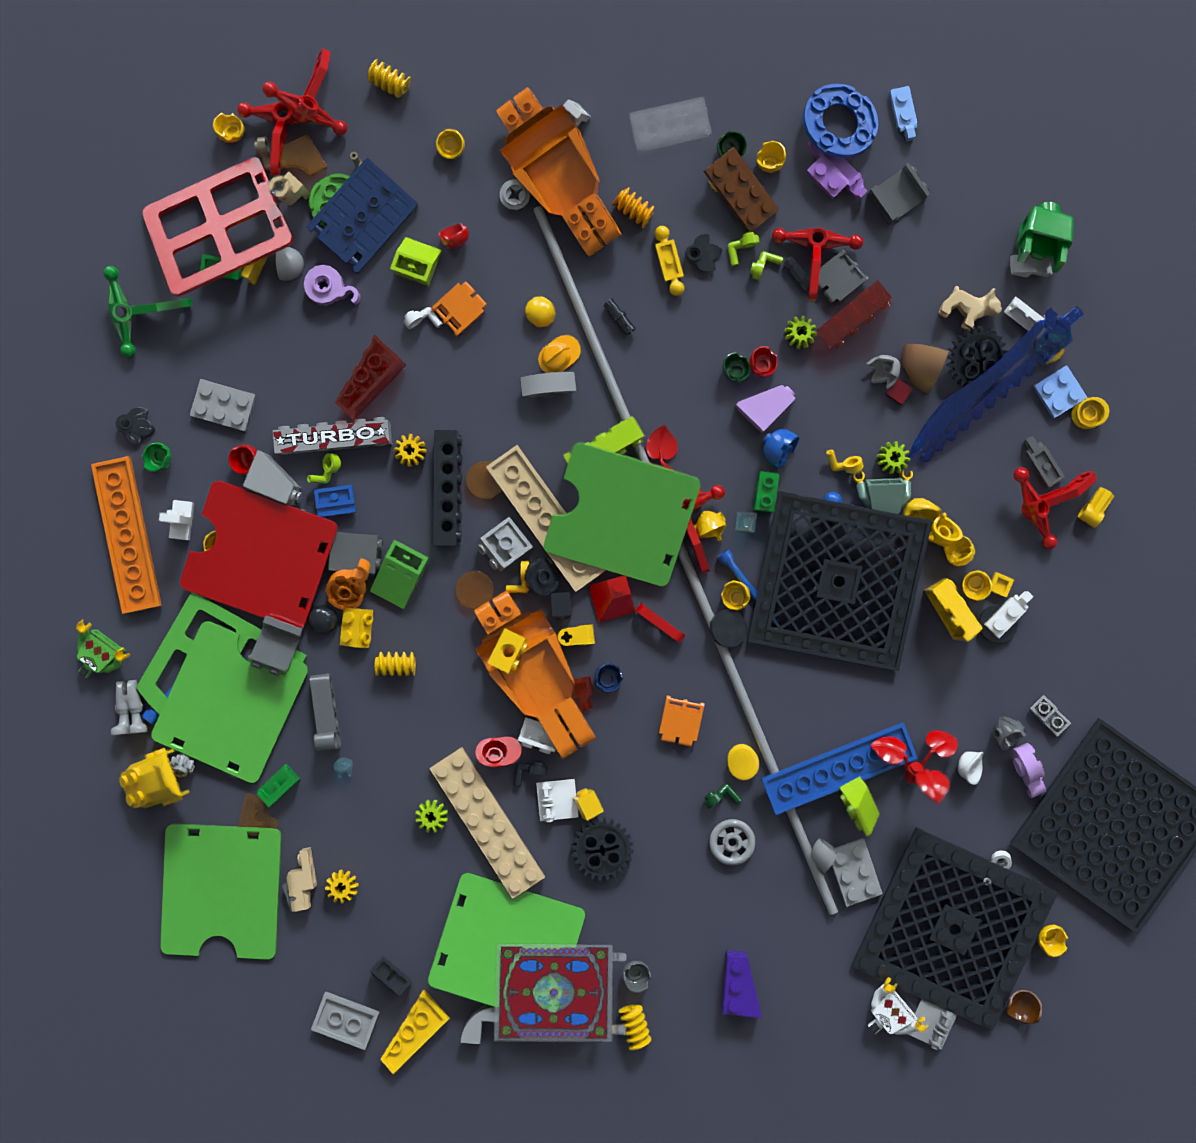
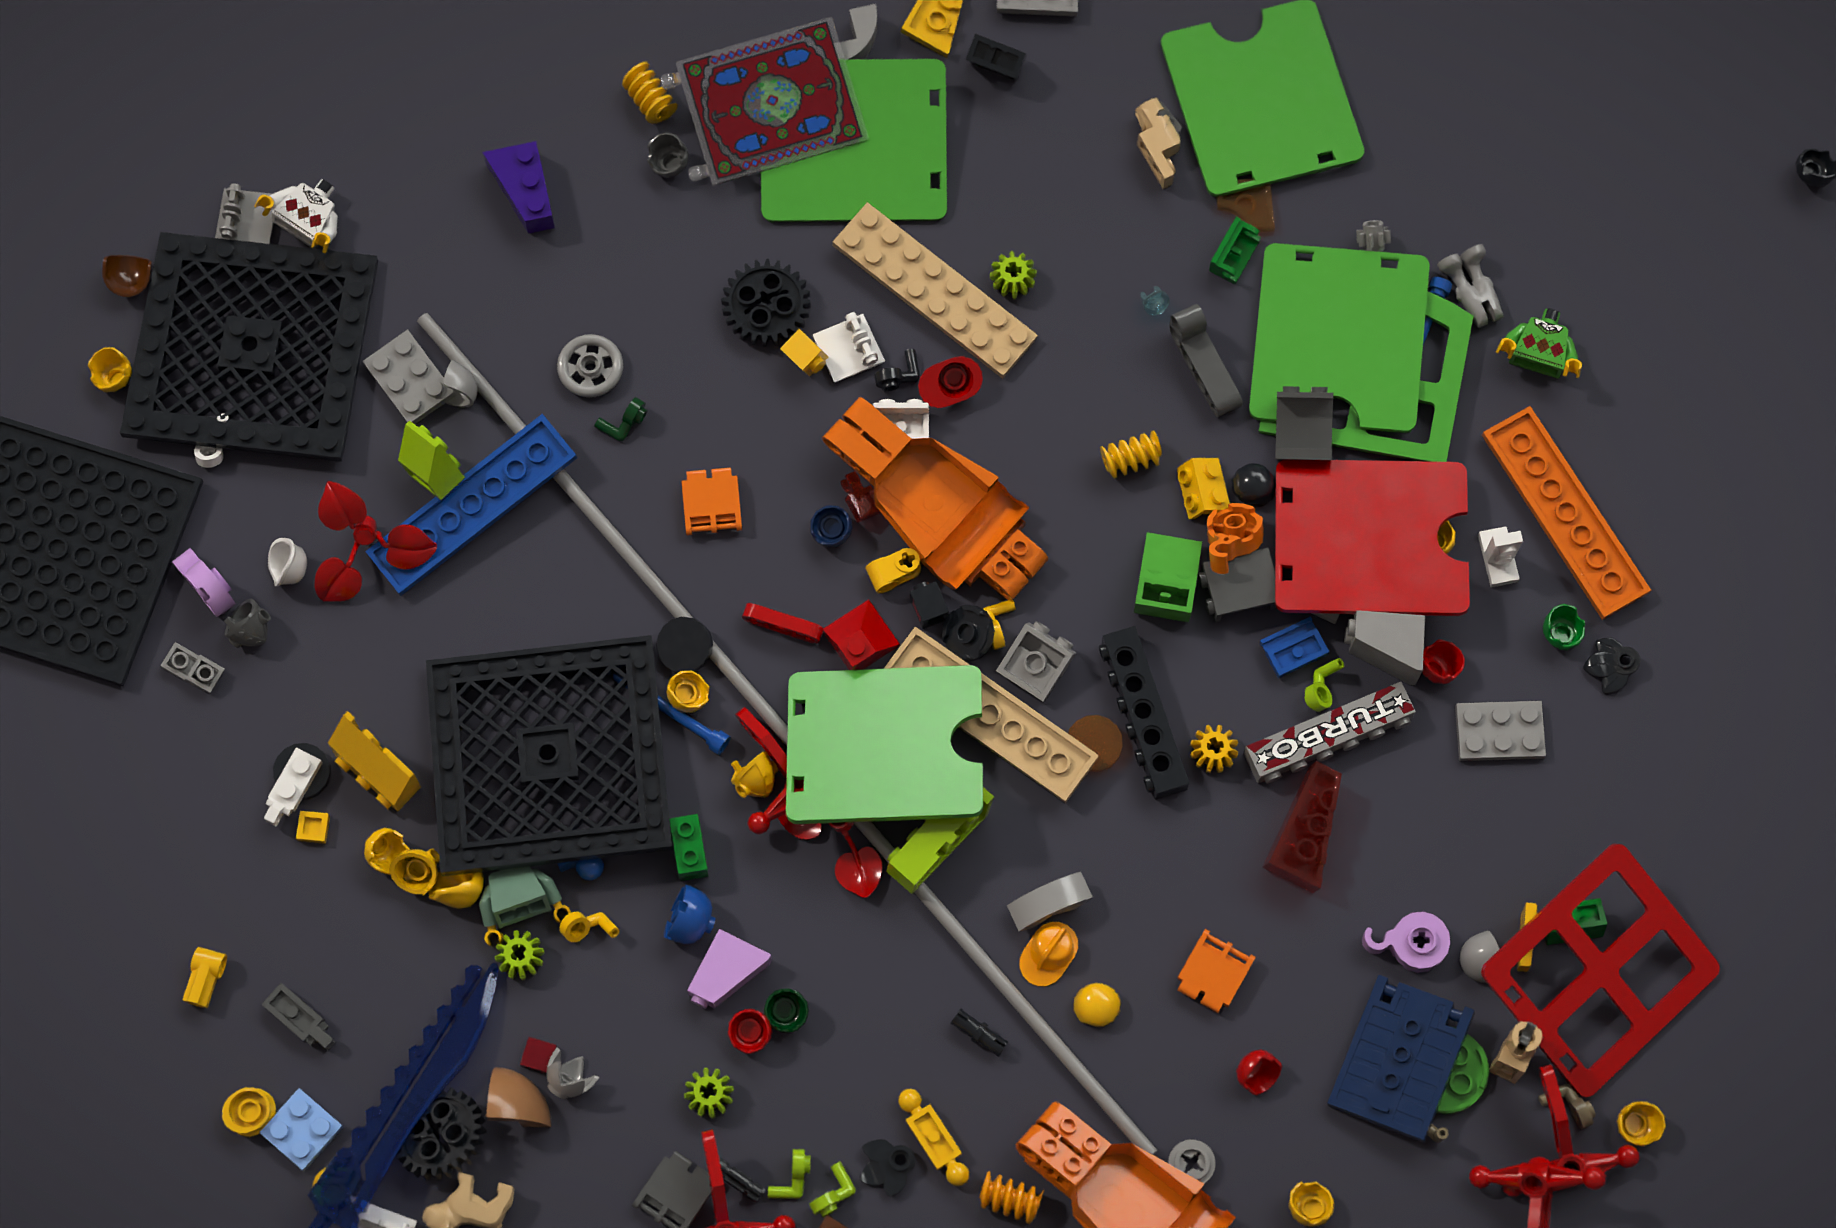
camera: 155 degrees right, 15 degrees down
(123, 324) = (1673, 820): green piece -> none
(151, 781) = (1406, 201): yellow slope -> none
(303, 155) = (1519, 1121): clear orange tile -> none
(336, 891) = (1098, 158): yellow gear -> none
(414, 318) = (1275, 935): white plate -> none
(415, 261) = (1300, 1016): lime slope -> none
(474, 589) = (1057, 590): clear orange tile -> none
(498, 657) = (989, 498): yellow brick -> none
(743, 762) = (608, 474): yellow piece -> none
(745, 522) = (705, 798): clear light blue plate -> none
(854, 314) = (635, 1141): clear red wedge -> none
(977, 585) = (347, 811): yellow hair -> none
(1037, 507) = (292, 947): red piece -> none

